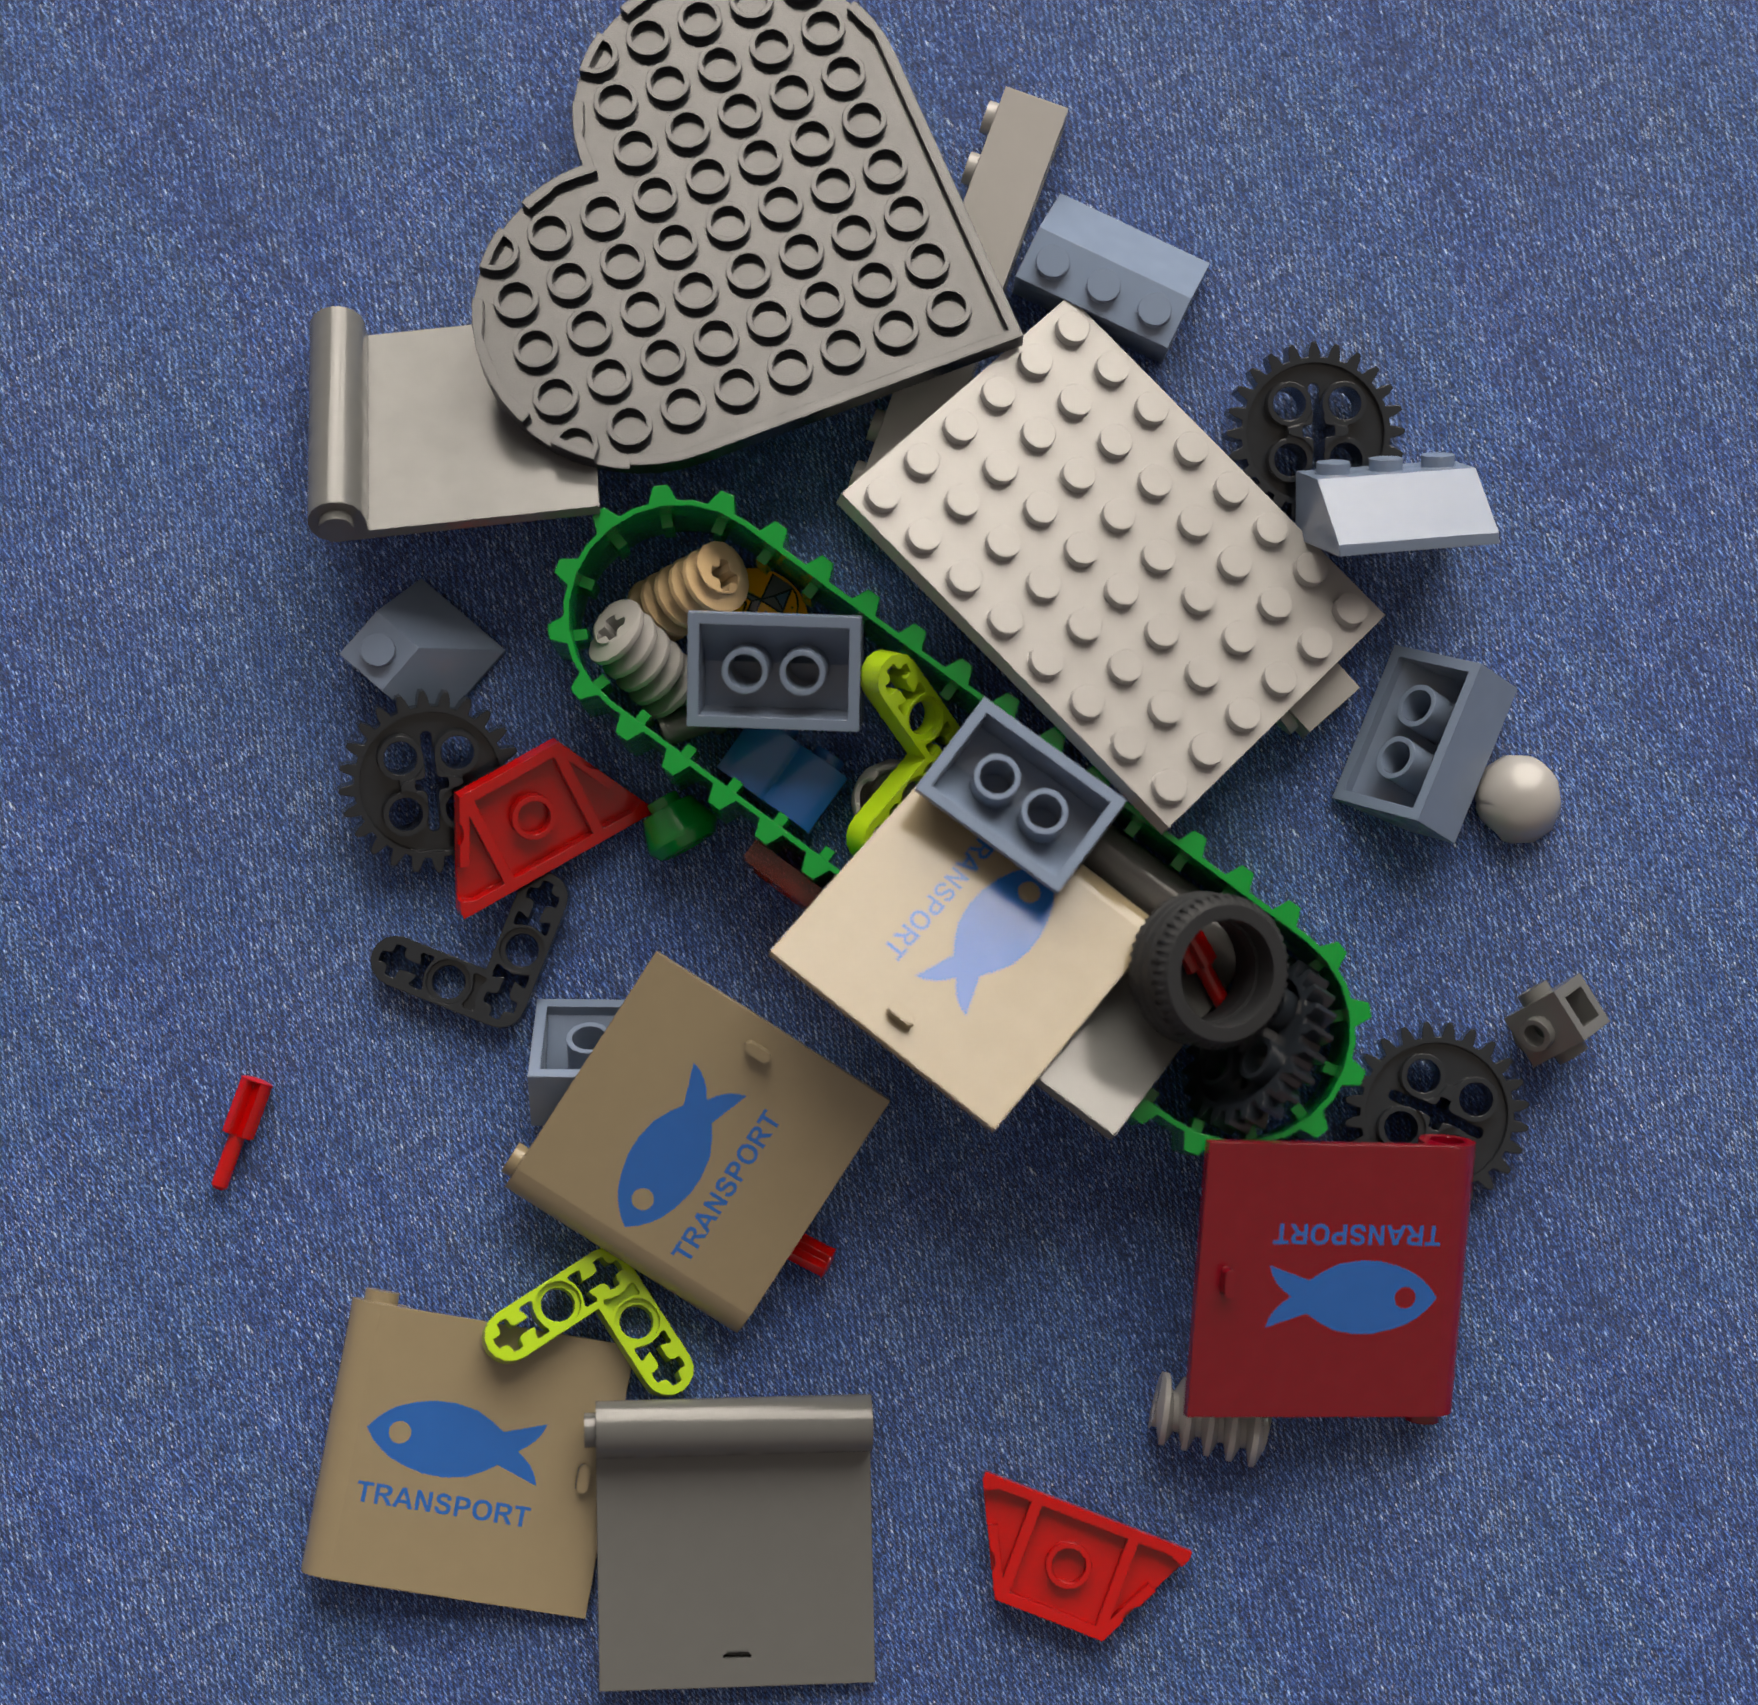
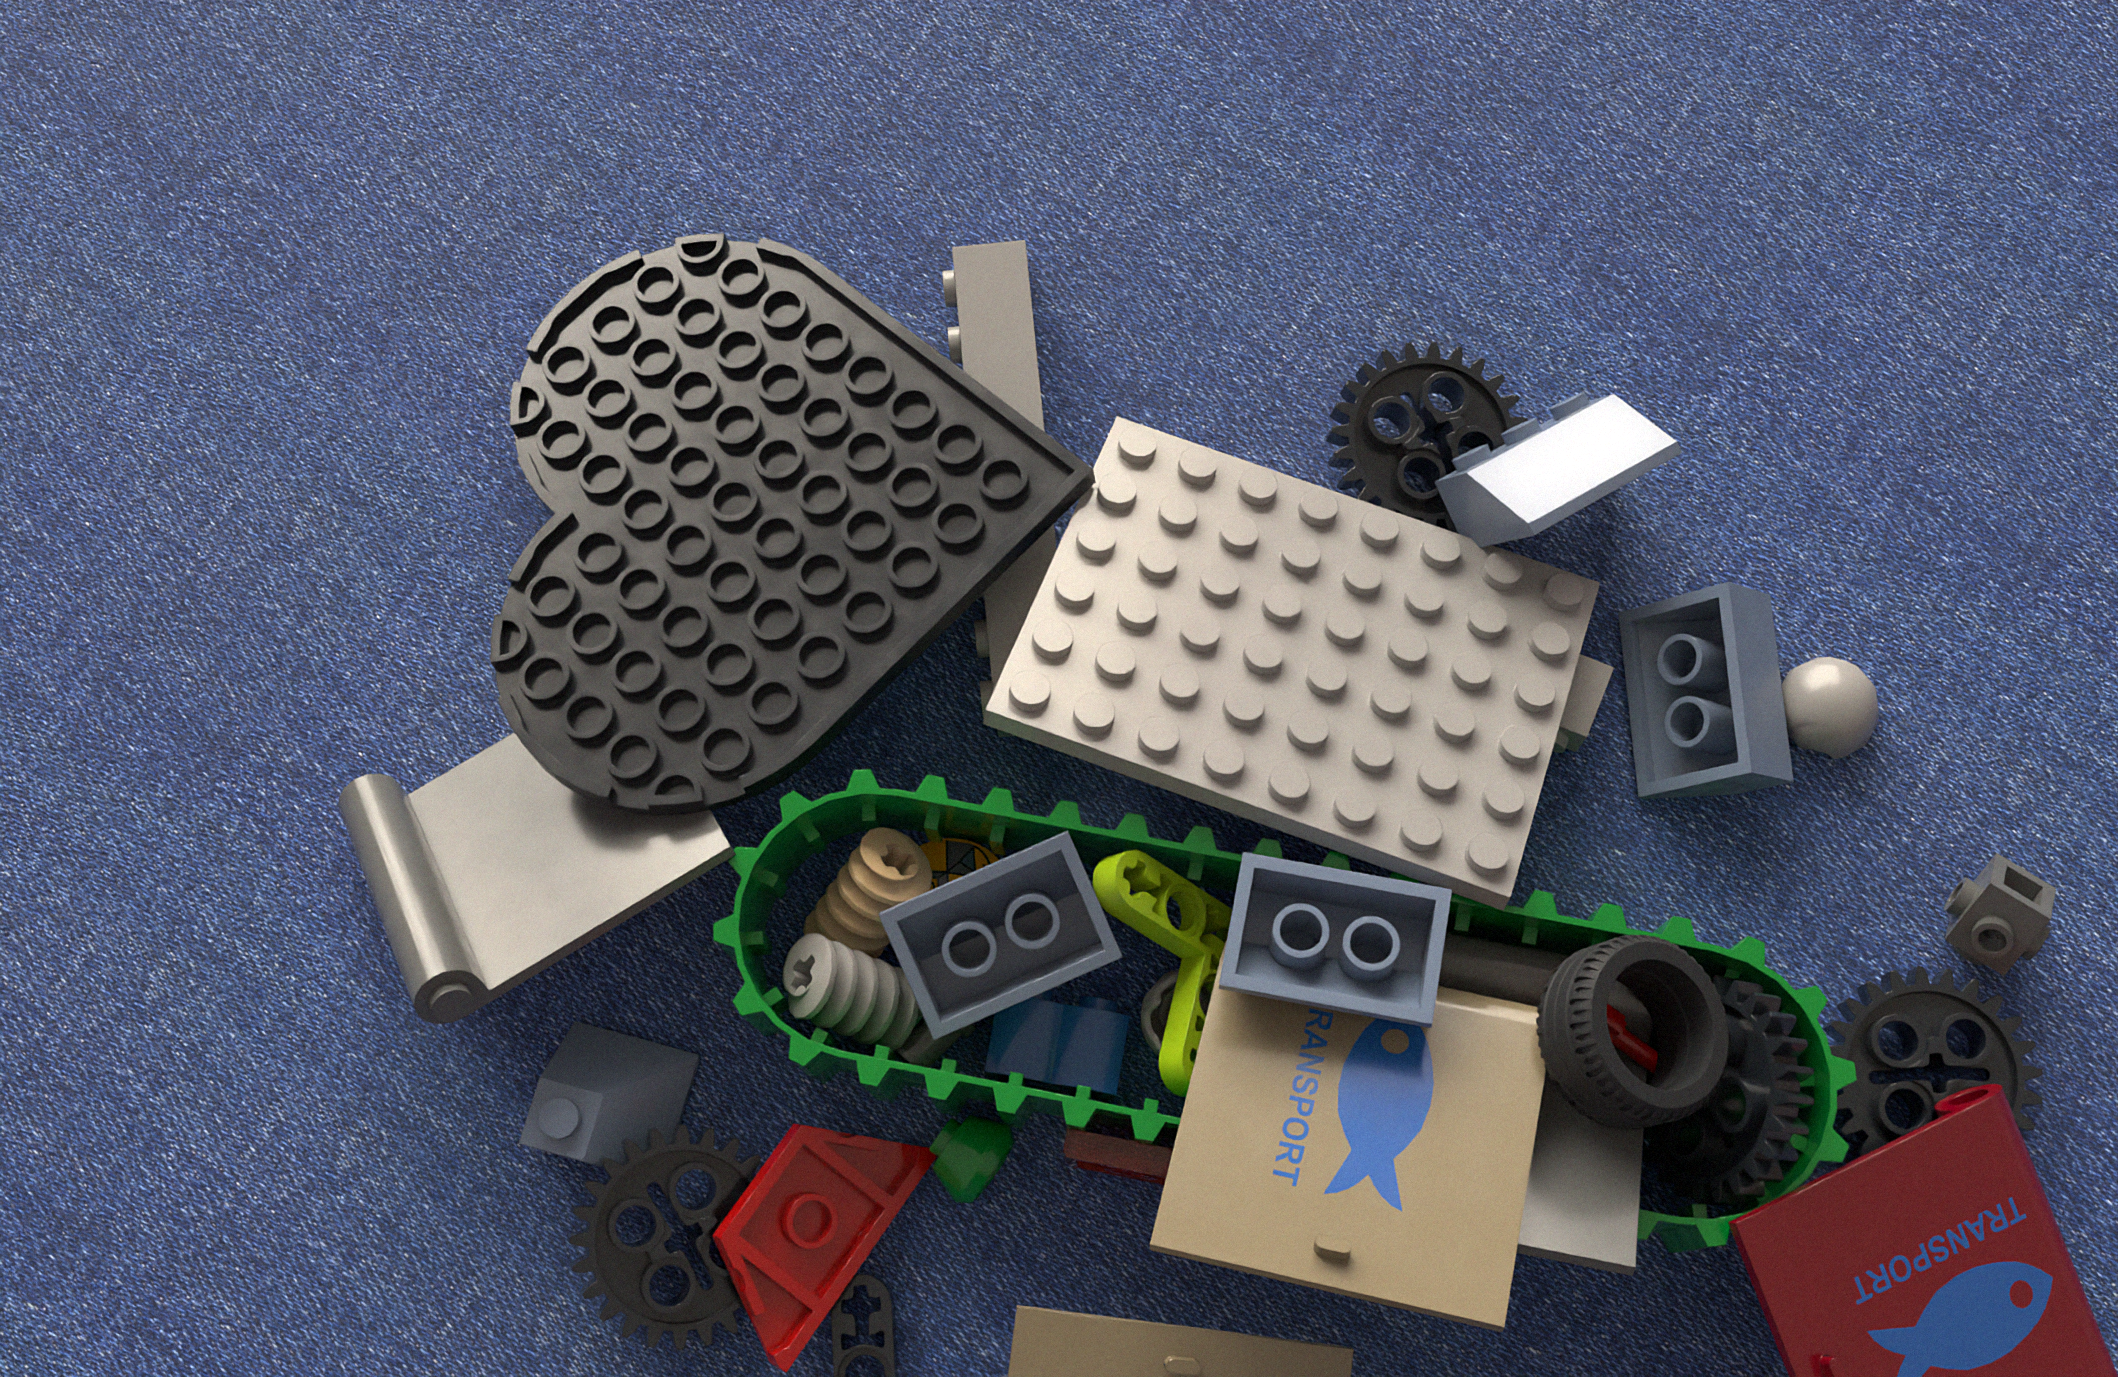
camera: 20 degrees left, 10 degrees down
(1114, 273) = (1155, 378): sand blue slope -> none

